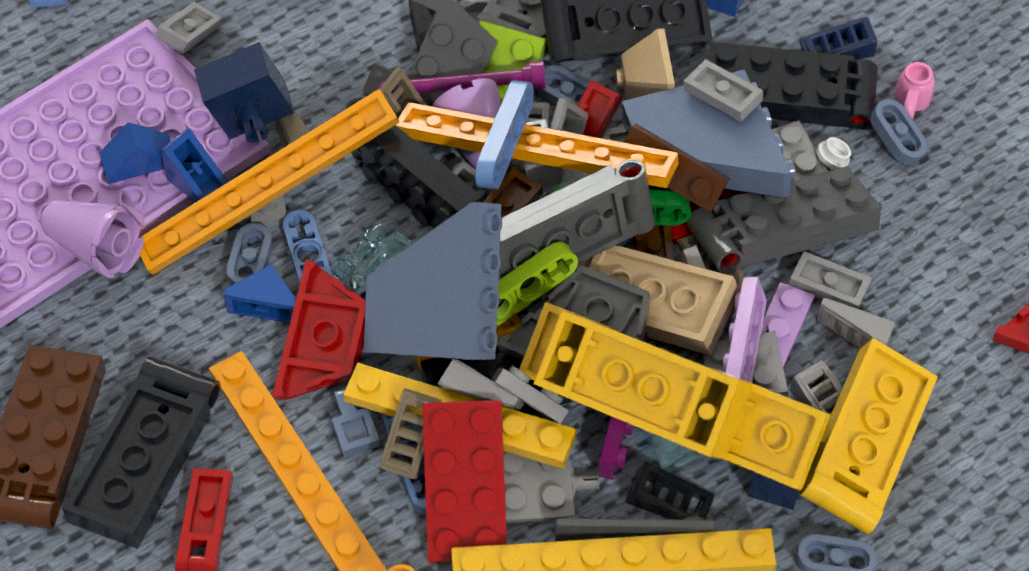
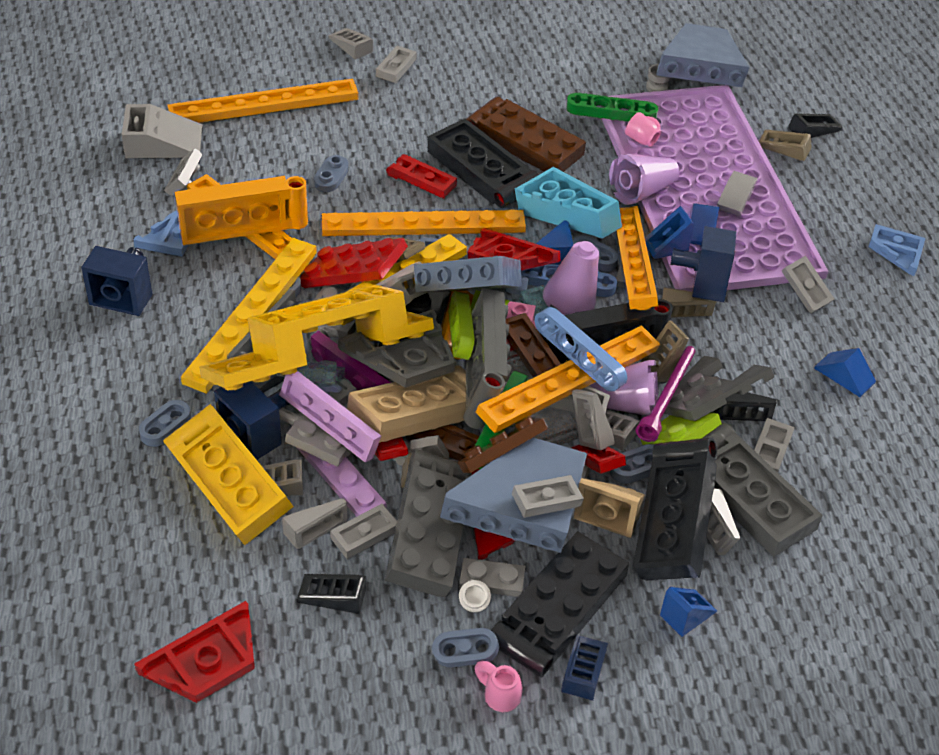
camera: 115 degrees right, 10 degrees down
(48, 136) = (736, 193): none -> light grey slope
(190, 300) = (561, 197): none -> medium azure wedge
(354, 224) = (575, 280): none -> lavender cone
(913, 251) = (341, 602): none -> black slope

